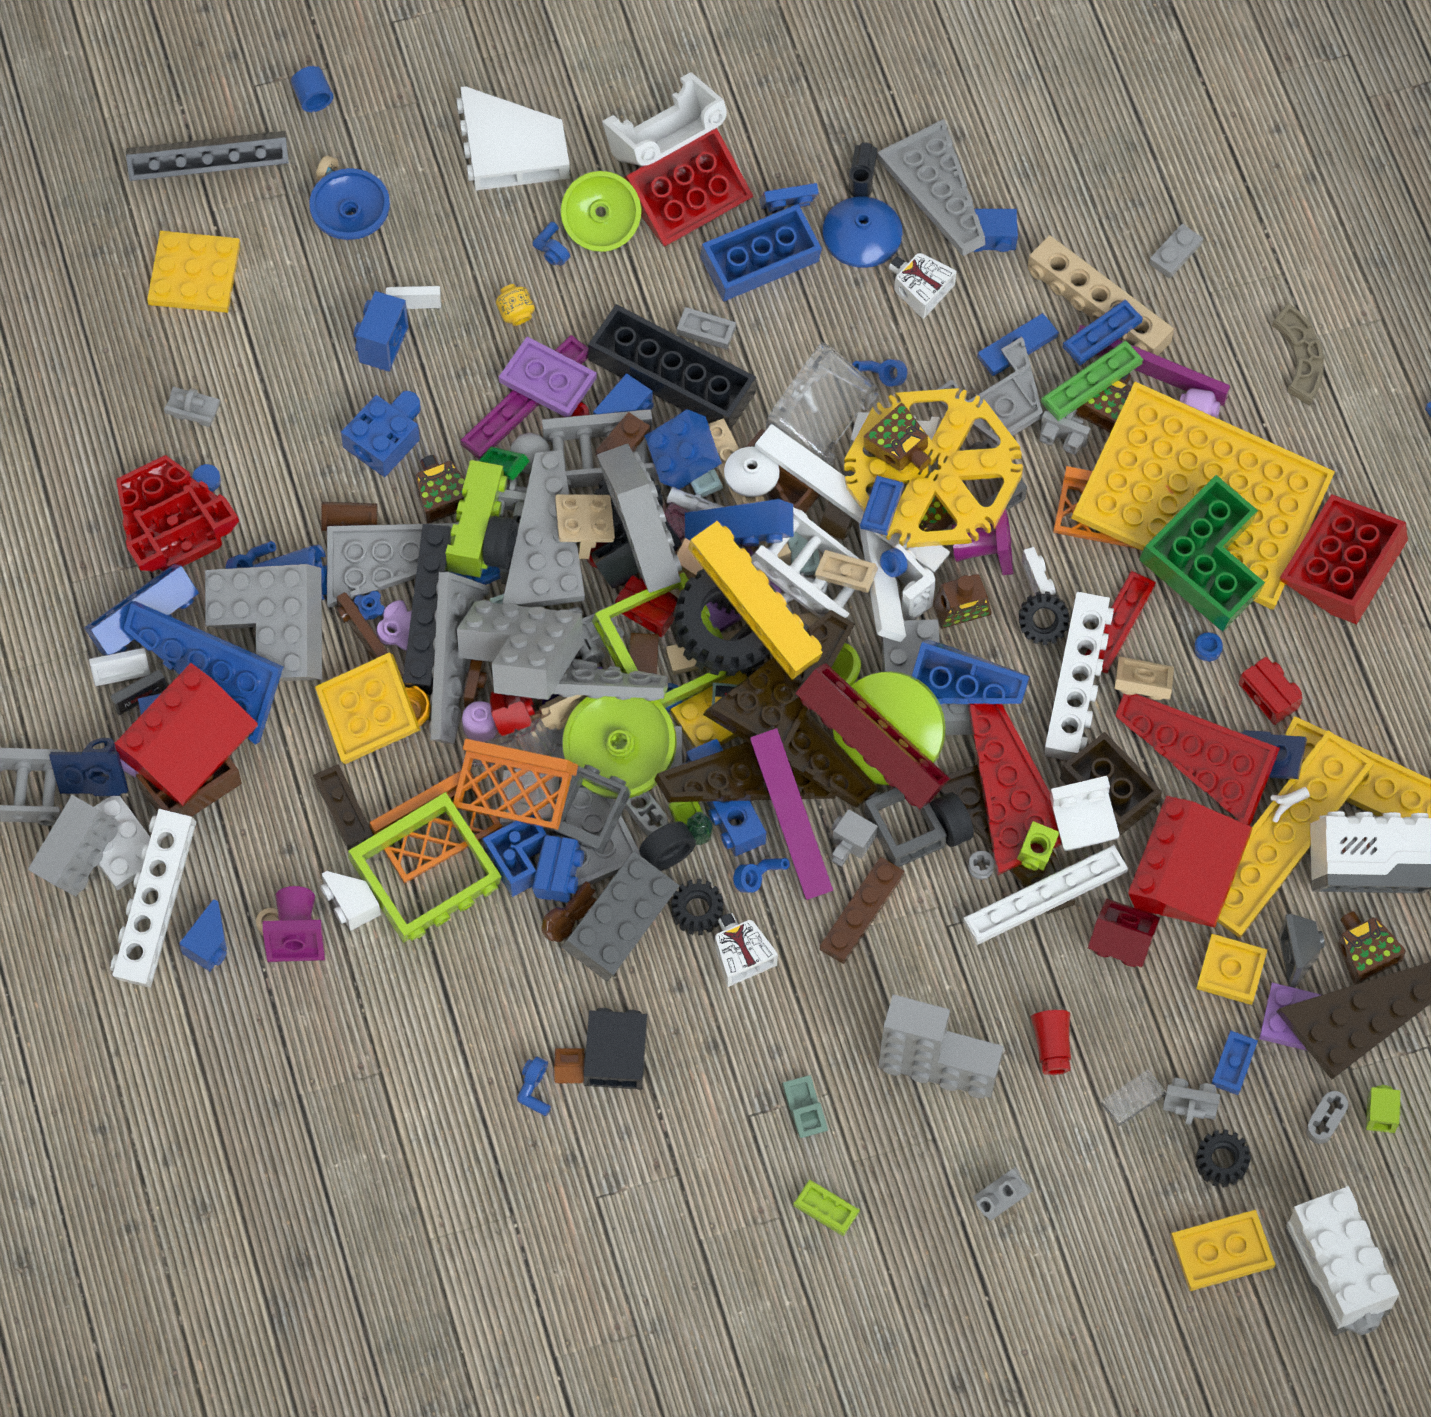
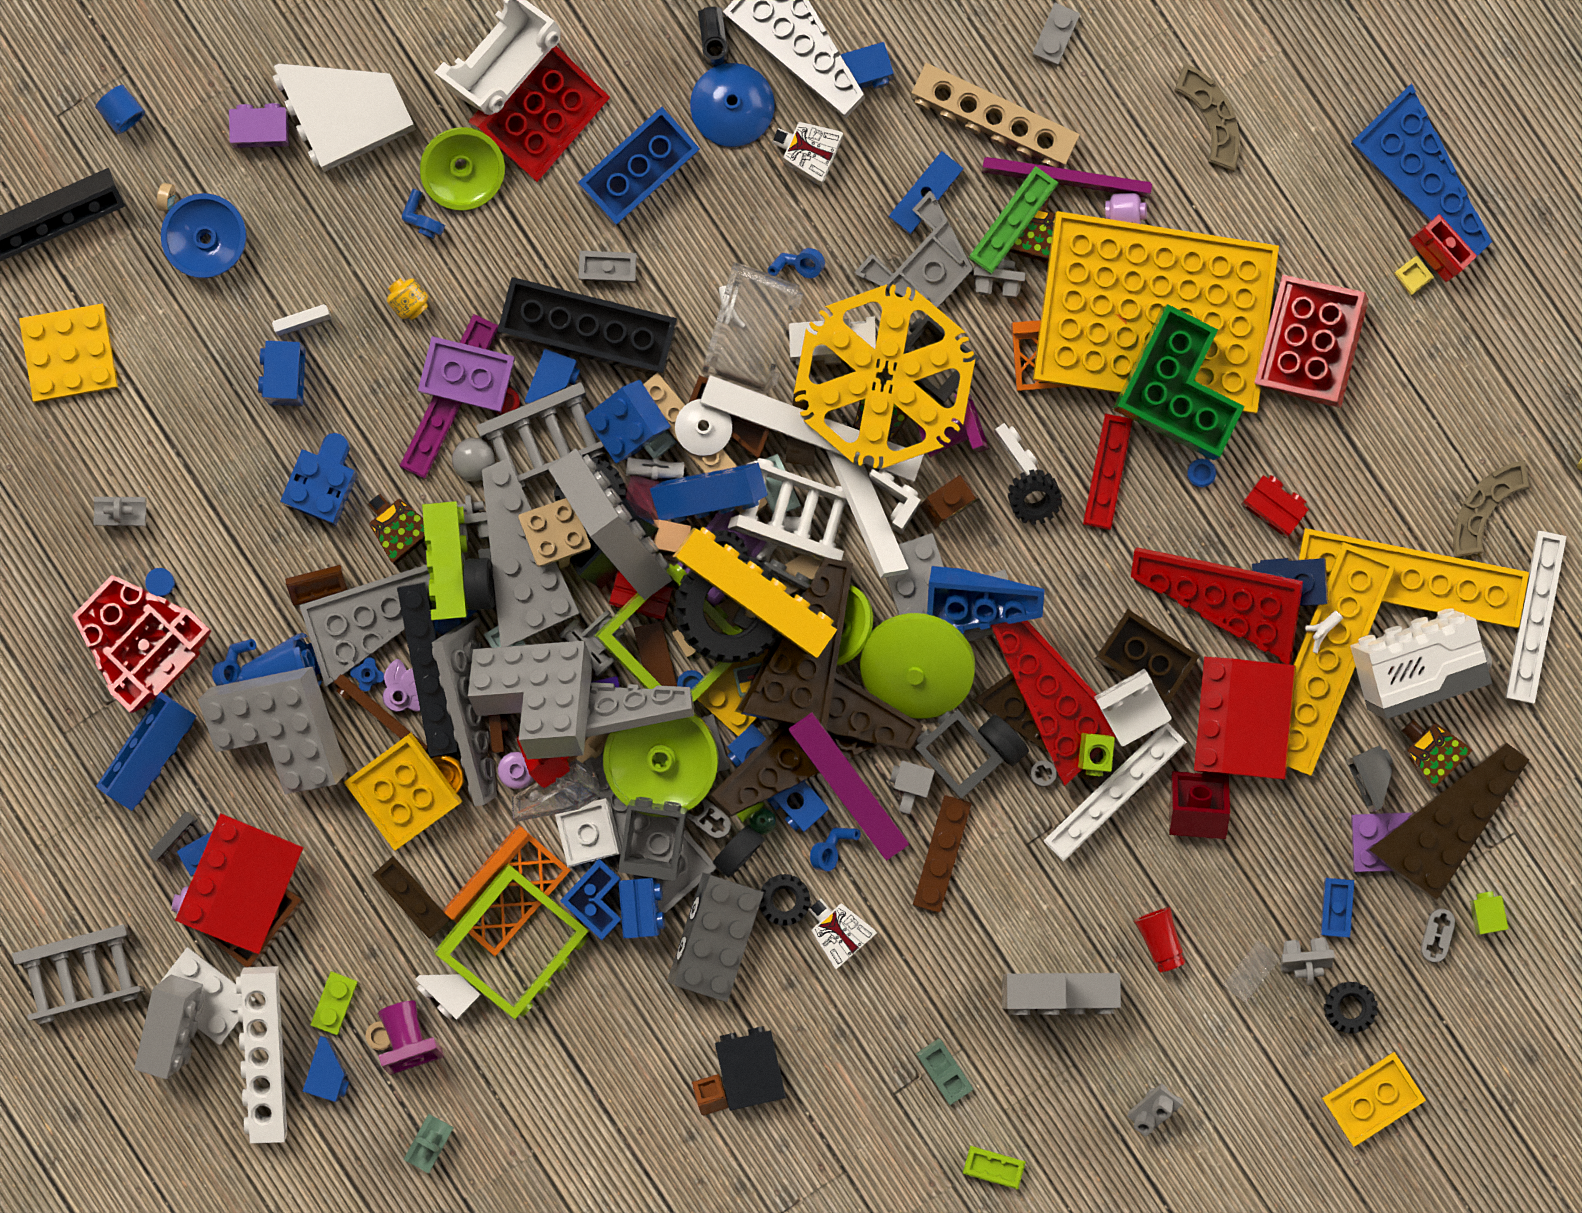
camera: 15 degrees left, 20 degrees up
(90, 771) = (157, 940): dark blue piece -> none
(119, 667) = (145, 815): white tile -> none
(237, 881) = (334, 1003): none -> lime plate
(240, 673) = (255, 799): blue wing -> none
(282, 1027) = (428, 1143): none -> sand green hips
(430, 136) = (259, 126): none -> medium lavender brick
(511, 461) = (450, 483): green plate -> none
(518, 759) = (567, 815): orange fence -> none
(533, 1072) = (679, 1116): blue plate -> none
(560, 921) = (659, 955): reddish brown piece -> none
(628, 431) = (564, 427): reddish brown plate -> none
(778, 199) = (641, 99): blue plate -> none
(846, 571) = (829, 513): tan plate -> none
(872, 736) = (906, 689): dark red brick -> none
(882, 505) = (846, 436): blue tile -> none
(893, 562) = (873, 489): blue tile -> none
(899, 440) = (845, 366): reddish brown torso -> none
(1086, 609) = (1071, 478): white brick -> none
(1102, 332) = (1009, 162): blue tile -> none
(1144, 678) = (1149, 532): tan plate -> none
(1231, 969) = (1310, 812): yellow plate -> none
(1342, 1262) = (1489, 1086): white piece -> none

